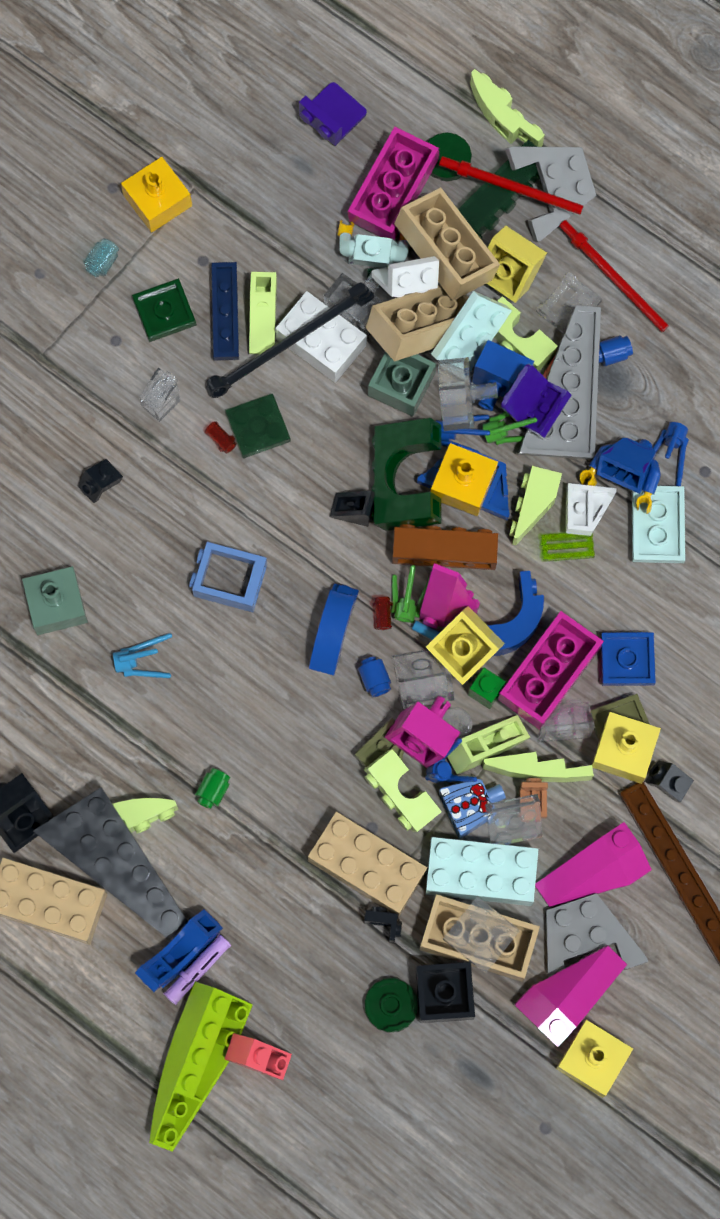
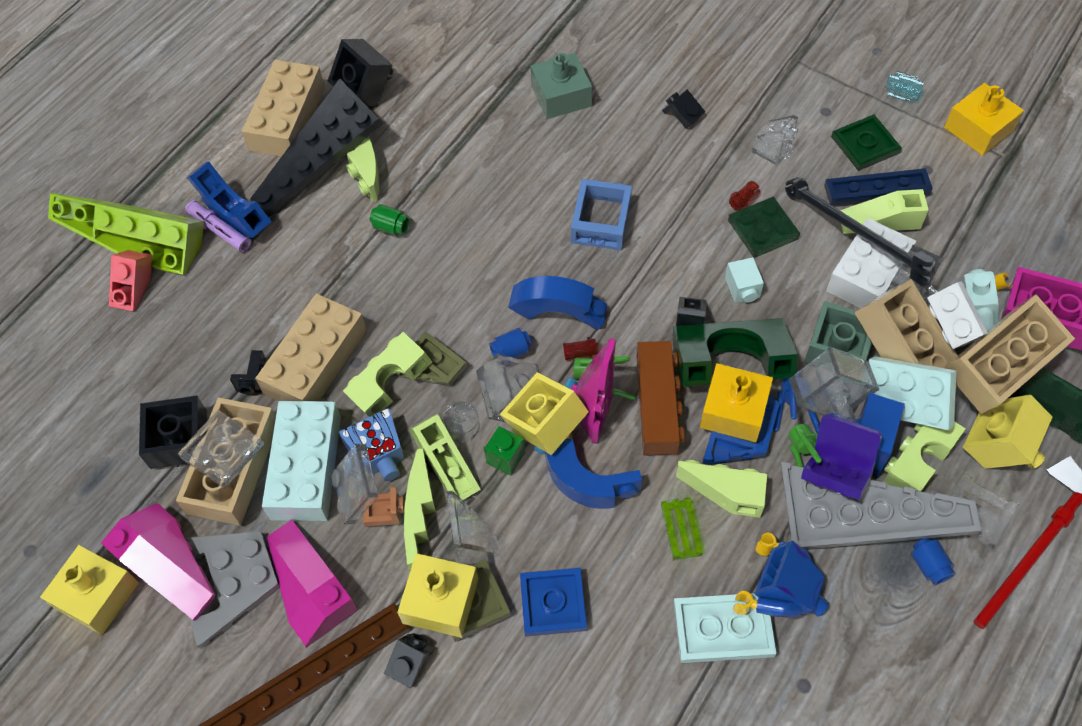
camera: 90 degrees right, 15 degrees down
(127, 658) = (511, 146): dark azure plant -> none
(324, 453) = (744, 280): none -> light aqua brick
(391, 1005) = (171, 384): dark green tile -> none
(424, 732) = (447, 383): dark pink brick -> none
(442, 770) = (410, 413): blue plant -> none
(550, 670) = (530, 512): dark pink brick -> none
(586, 507) = (730, 542): white wing -> none
(674, 438) = (838, 639): blue plant -> none

